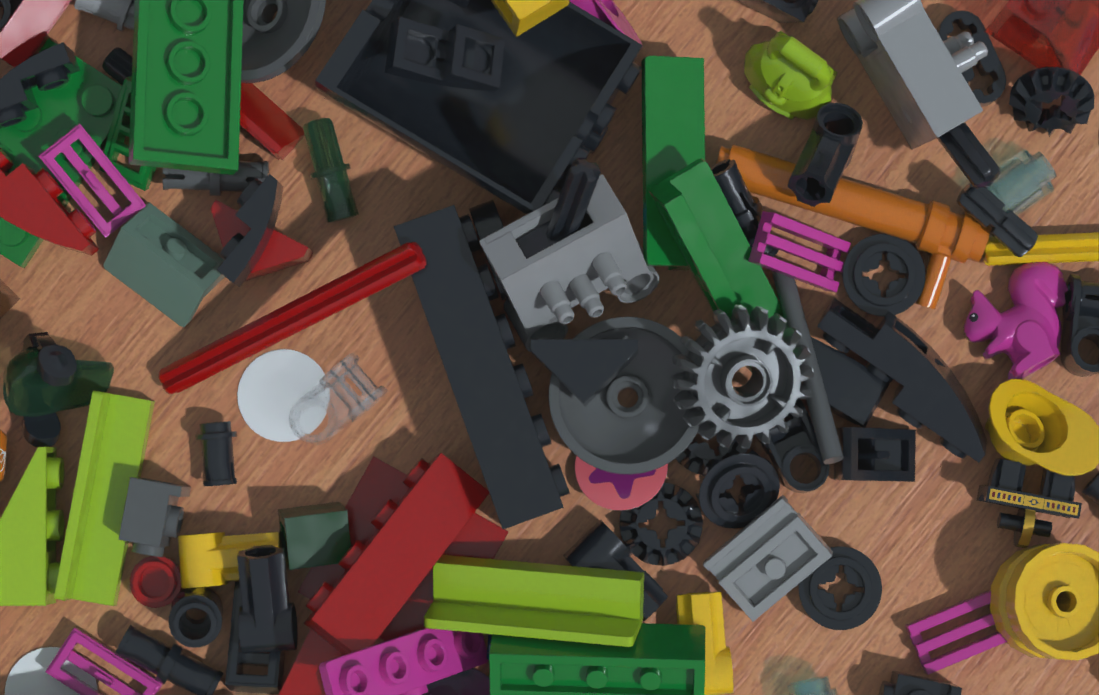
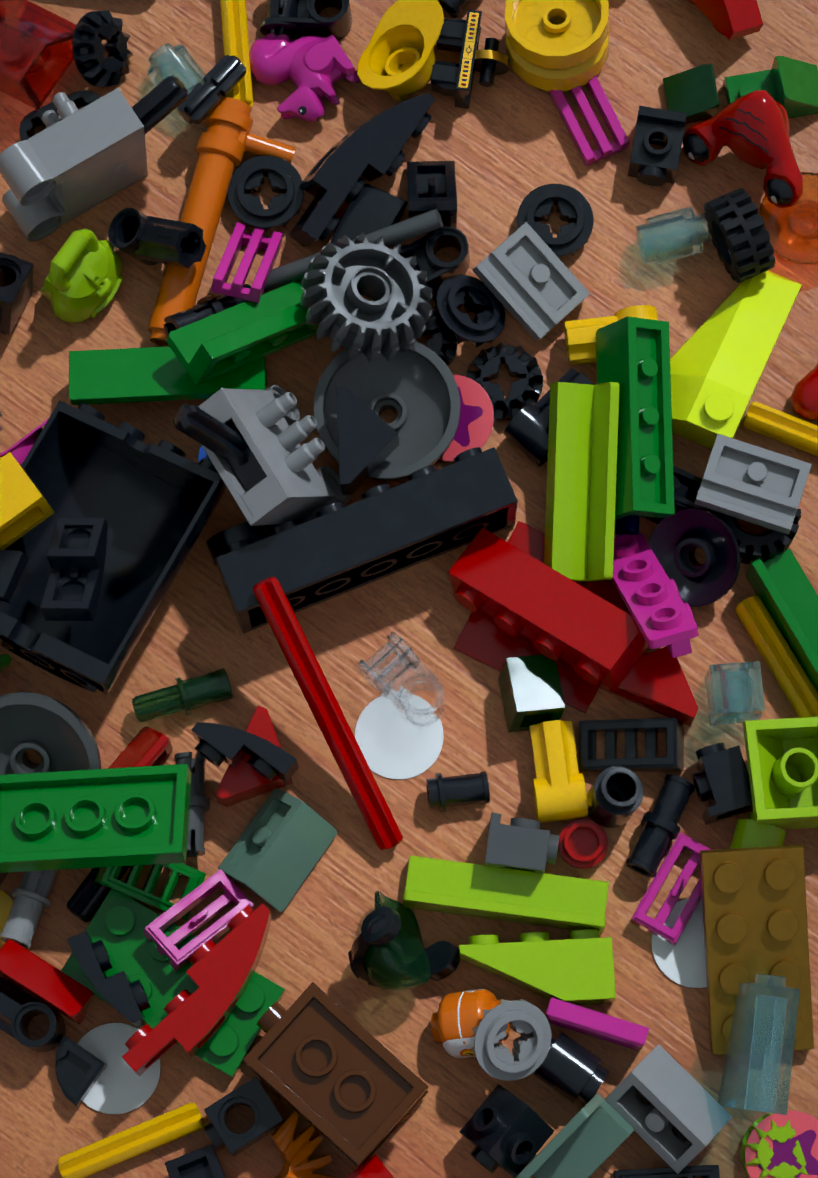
camera: 90 degrees left, 10 degrees down
(266, 616) = (609, 725): black piece -> none

